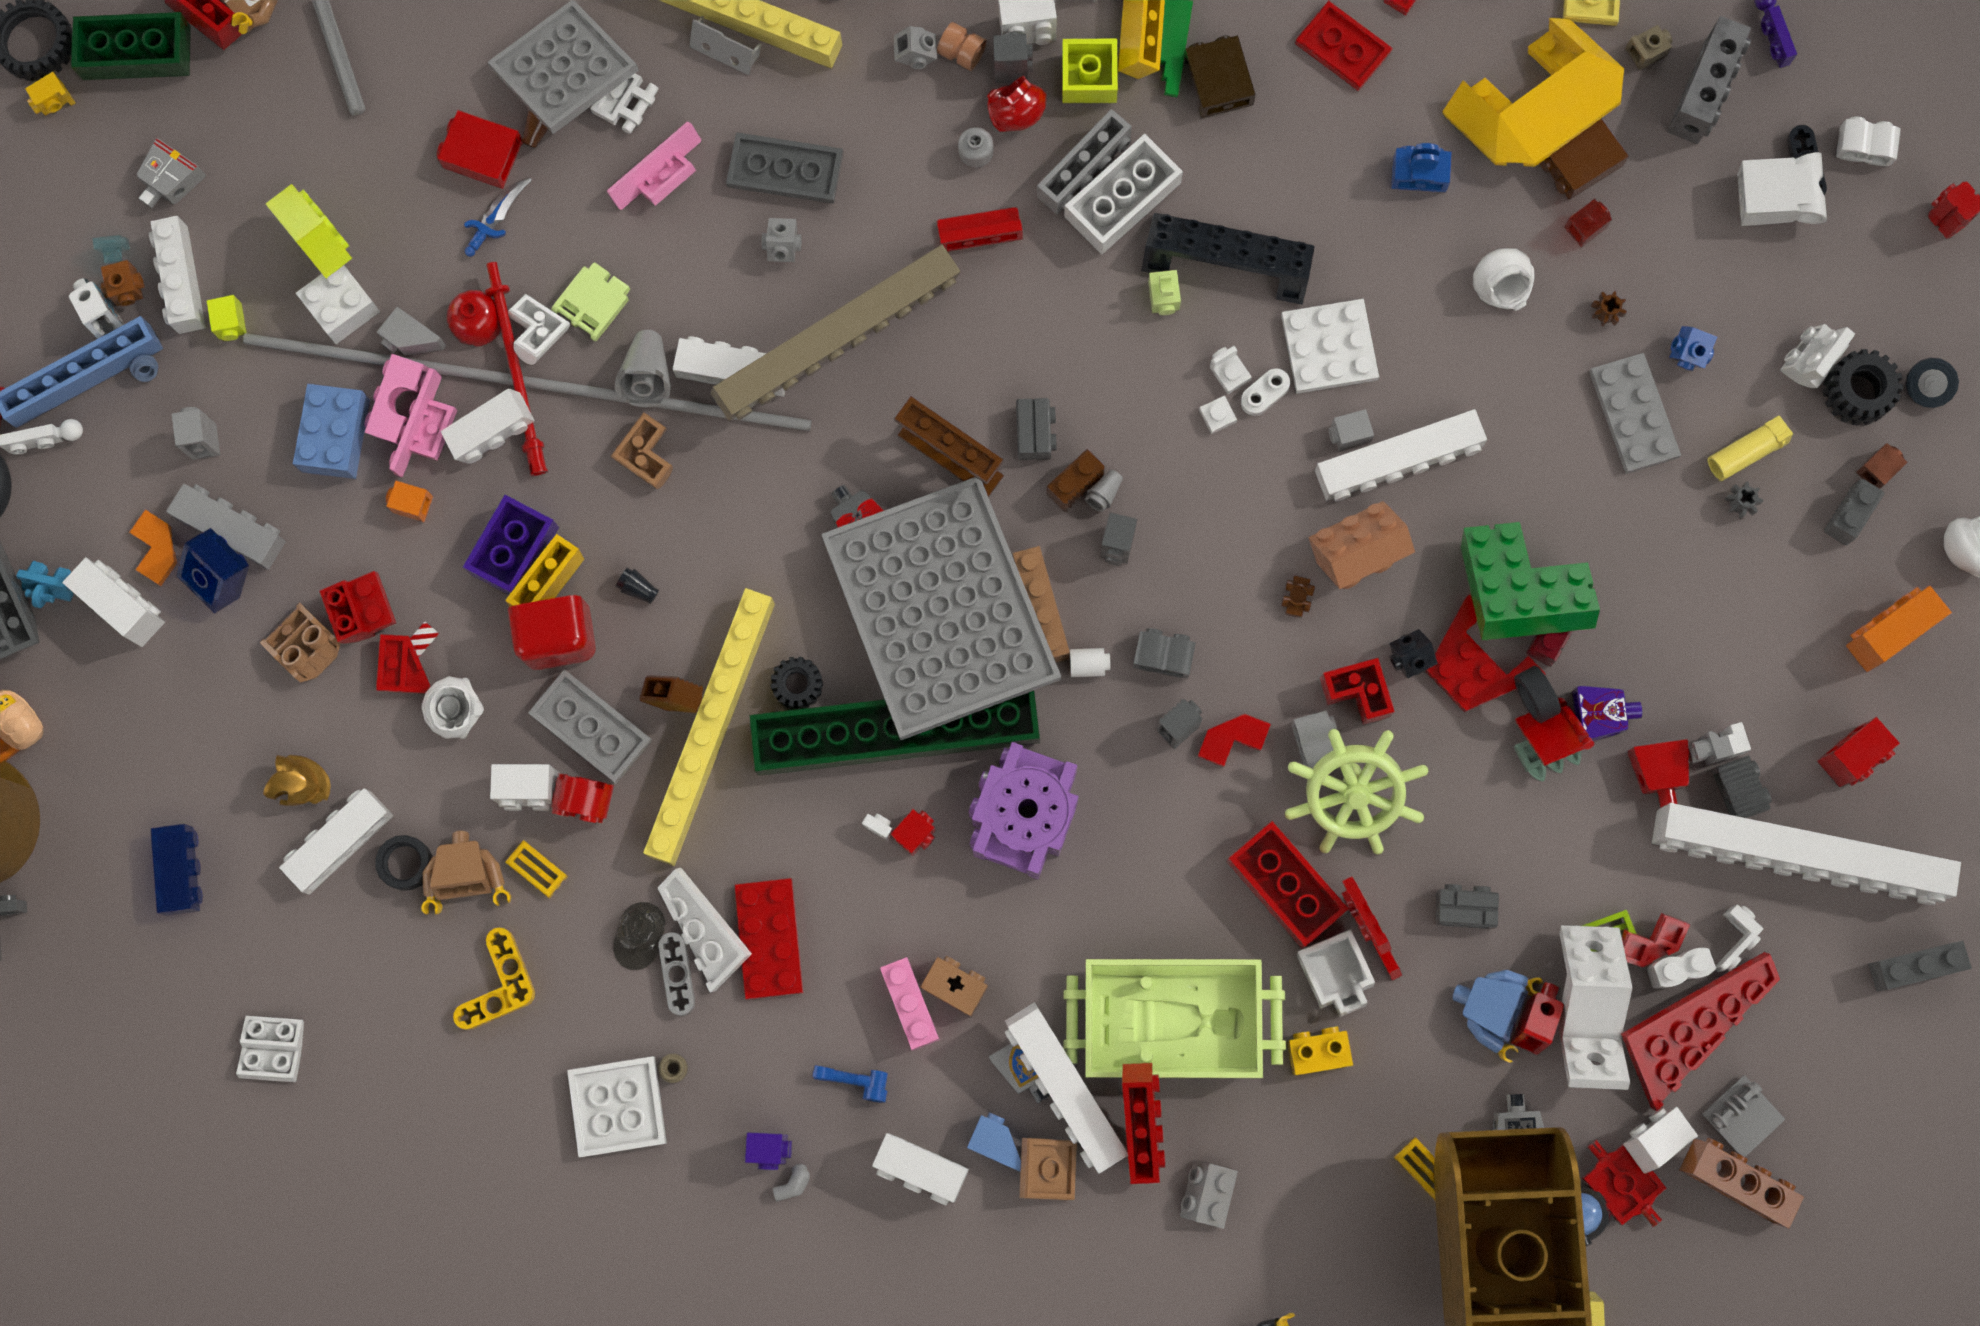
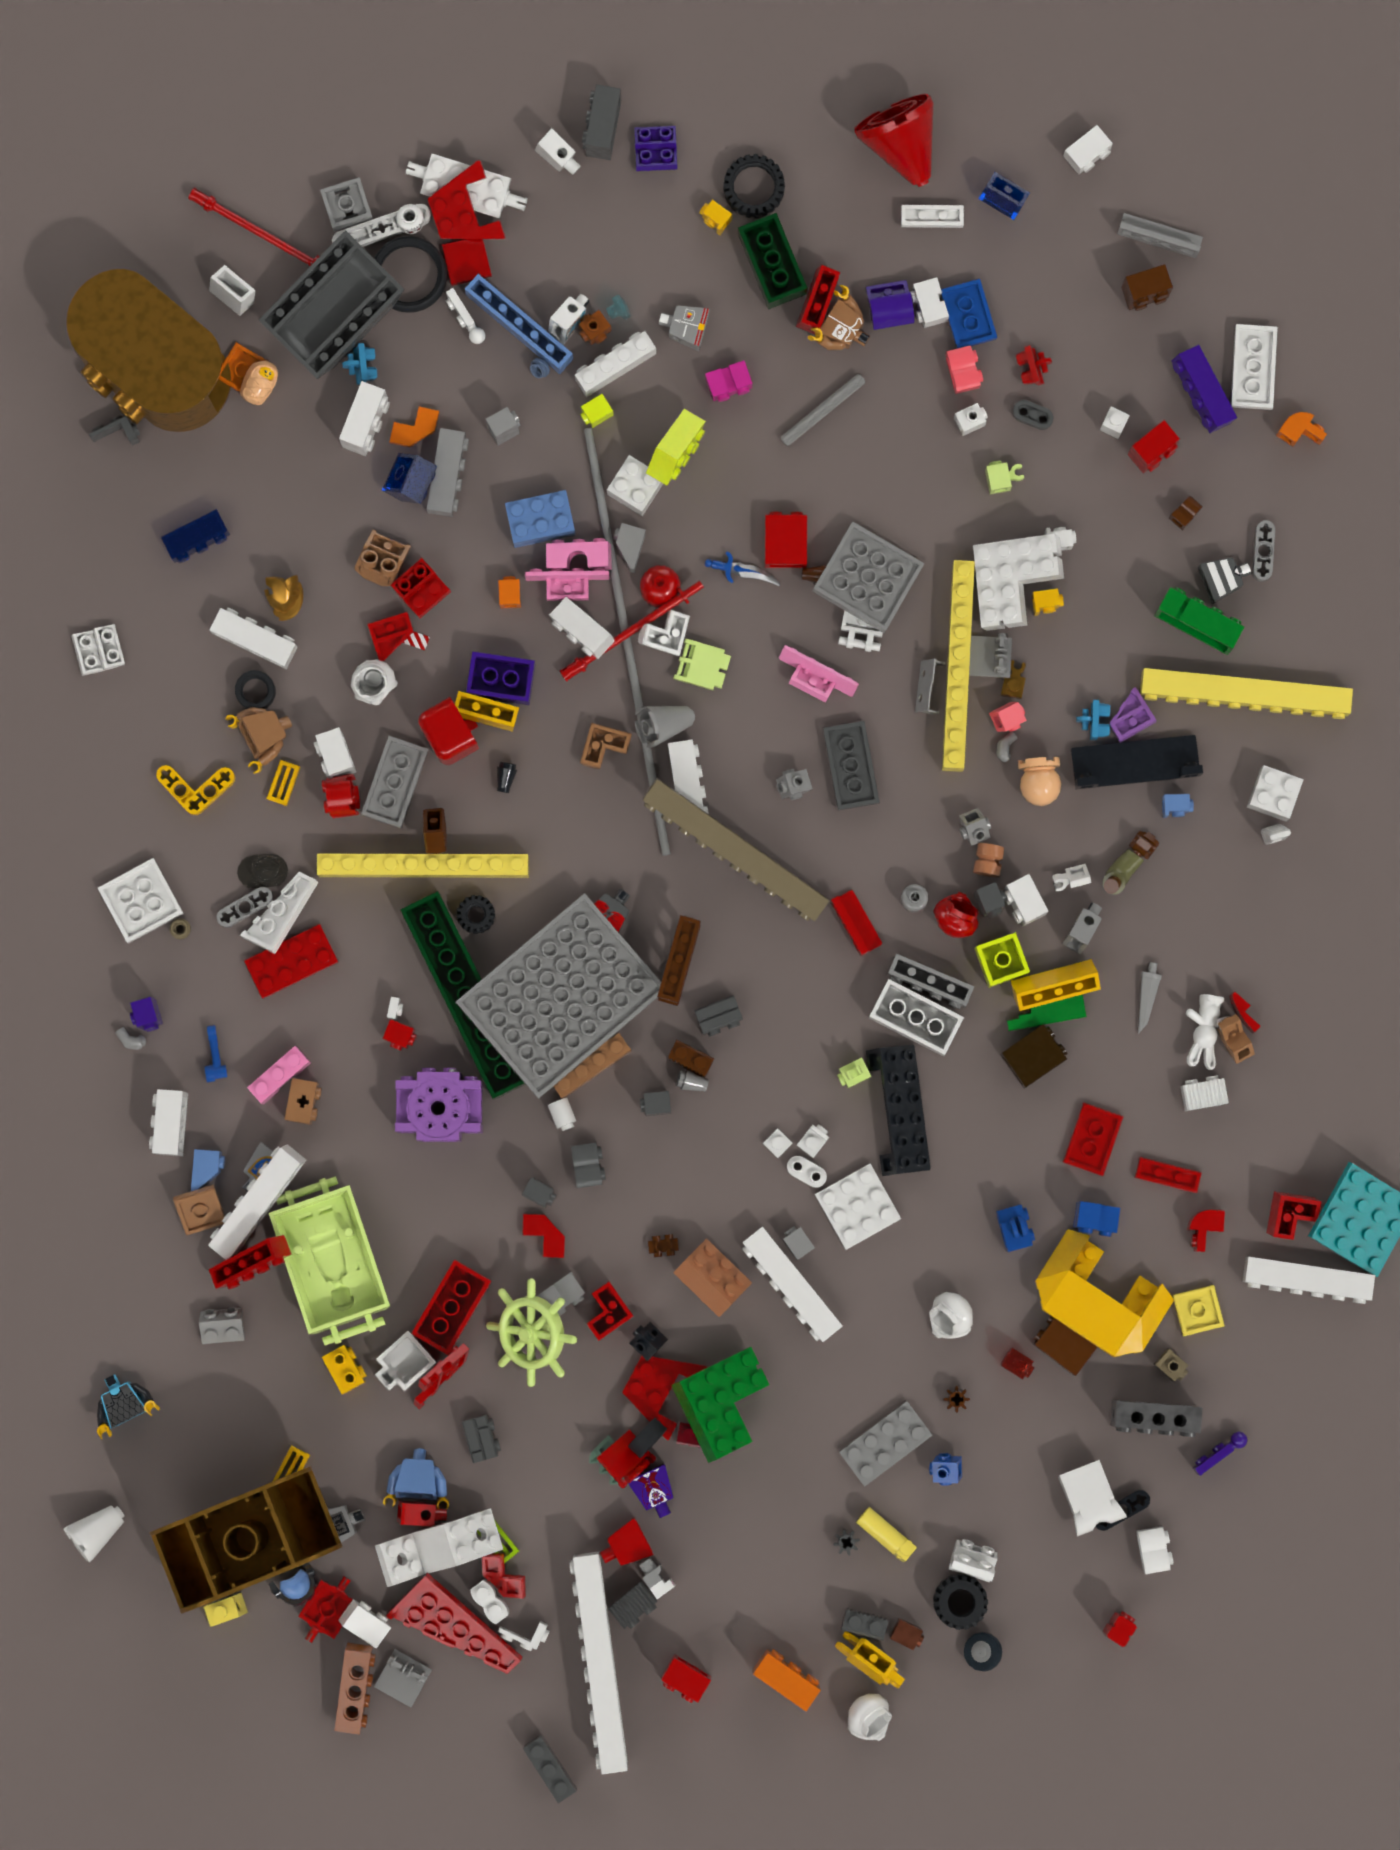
camera: 65 degrees right, 5 degrees up
(256, 149) = (729, 381): none -> dark pink brick
(1442, 71) = (1097, 1218): none -> blue brick
(1903, 519) = (870, 1660): none -> yellow hinge

